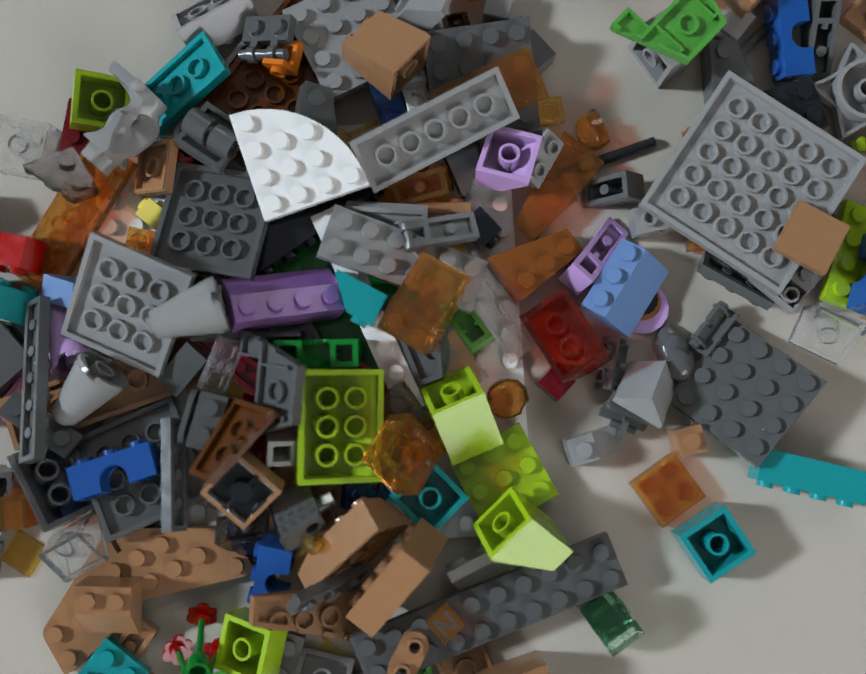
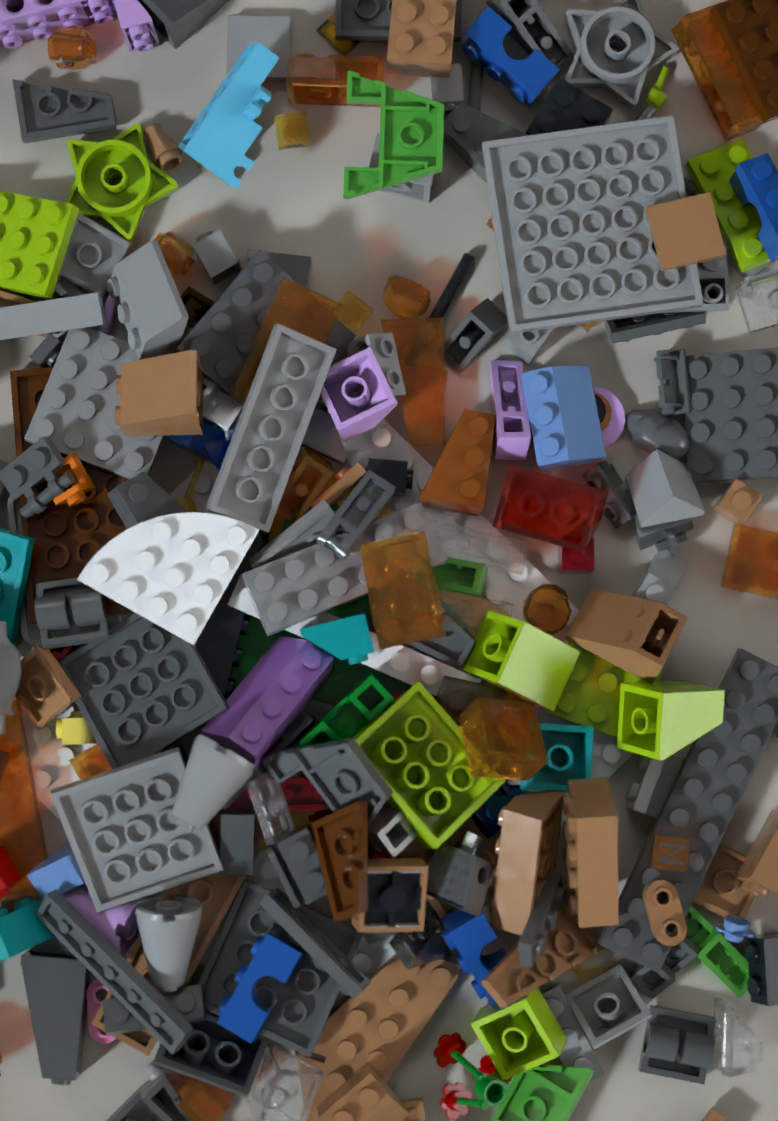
camera: 50 degrees left, 0 degrees up
(312, 545) = (494, 889): clear yellow hand -> none
(544, 458) = (627, 631): none -> medium nougat slope

